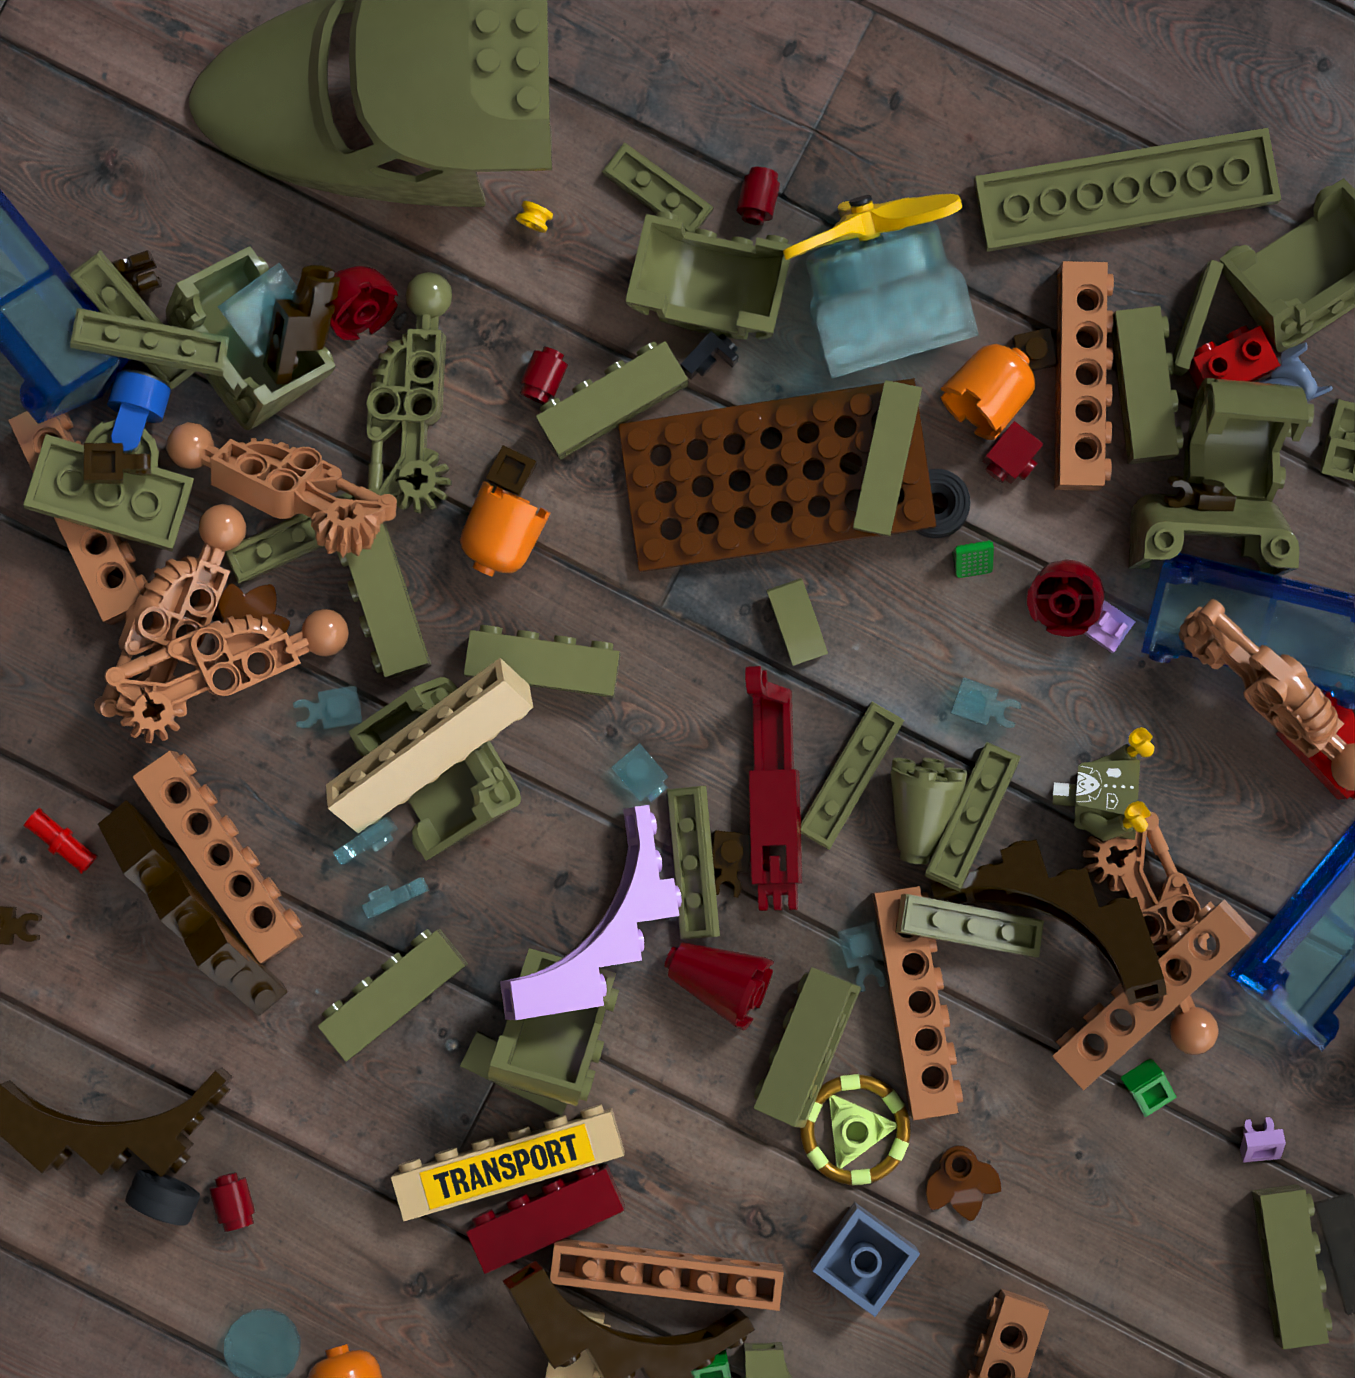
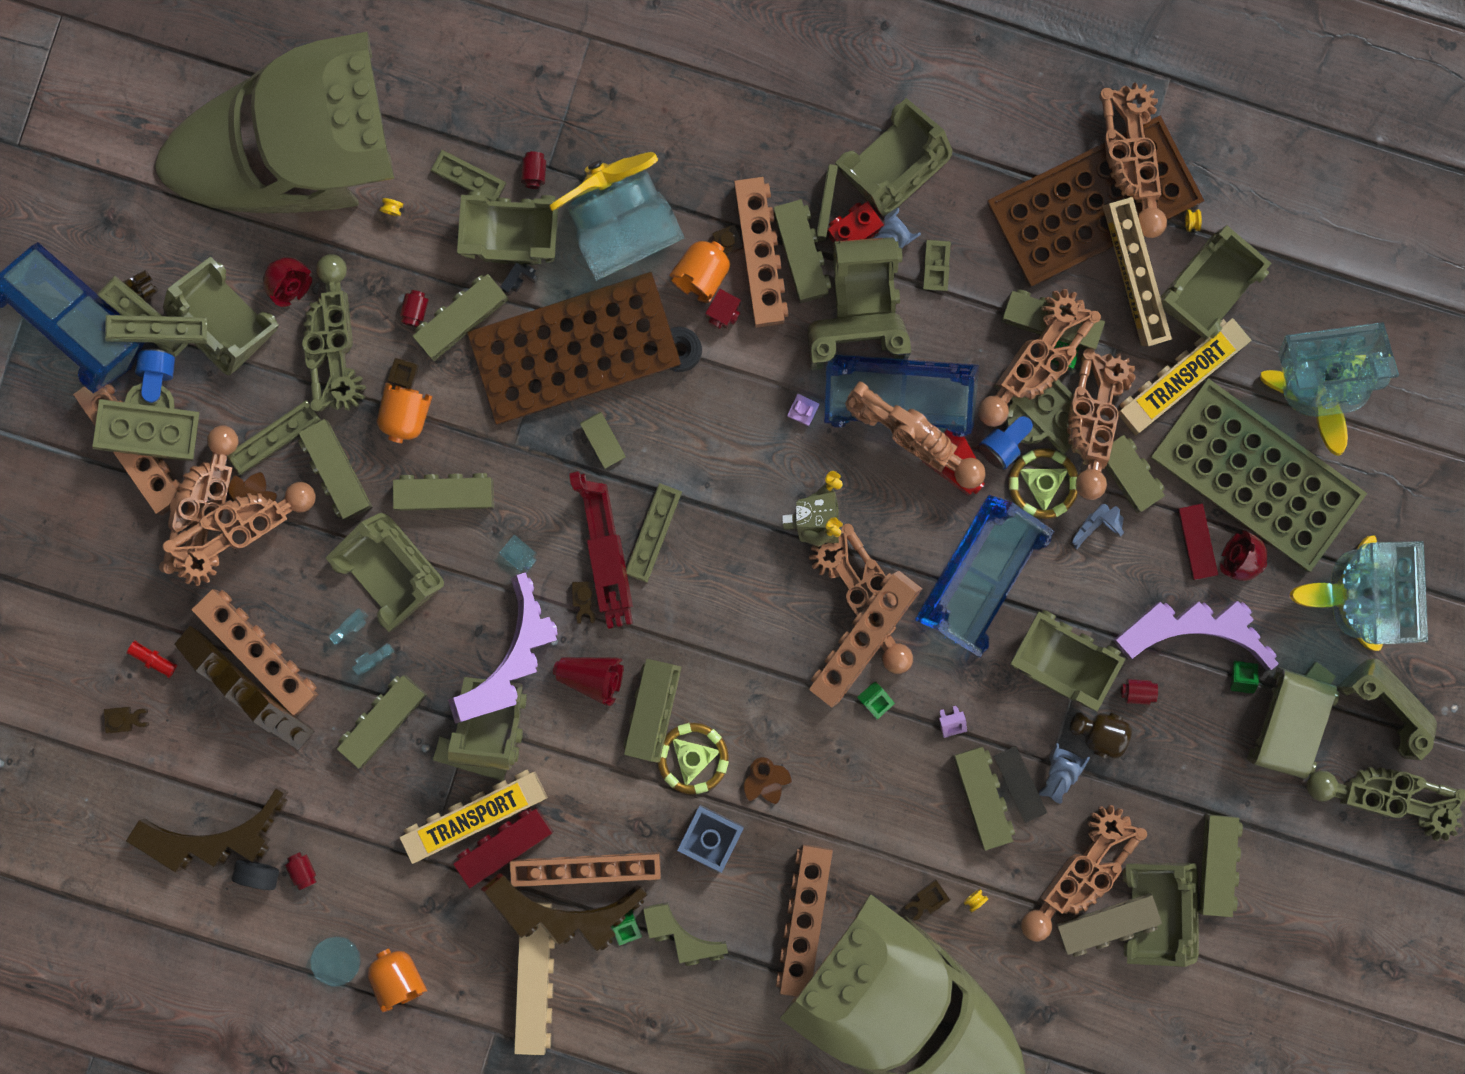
camera: 15 degrees left, 0 degrees up
(107, 463) = (141, 411): dark brown plate -> none
(253, 307) = (229, 296): clear light blue slope -> none
(287, 484) = (259, 405): nougat arm -> none
(300, 321) = (251, 300): dark brown plate -> none
(336, 708) = (315, 545): clear light blue plate -> none
(429, 746) = (378, 558): tan brick -> none
(693, 862) = (561, 604): olive tile -> none
(860, 949) = (678, 642): clear light blue plate -> none
(887, 458) = (641, 325): olive tile -> none
(922, 1099) = (732, 731): nougat brick -> none
(923, 804) = (701, 543): olive cone -> none
(969, 925) = (743, 615): olive tile -> none
(972, 816) = (734, 545): olive tile -> none
(973, 559) = (709, 381): green slope -> none
(978, 702) = (727, 472): clear light blue plate -> none
(1066, 597) = (771, 395): dark red cylinder -> none
(1069, 897) = (803, 587): dark brown arch -> none
(1127, 189) = (770, 127): olive plate -> none
(1204, 496) = (849, 316): dark brown plate -> none

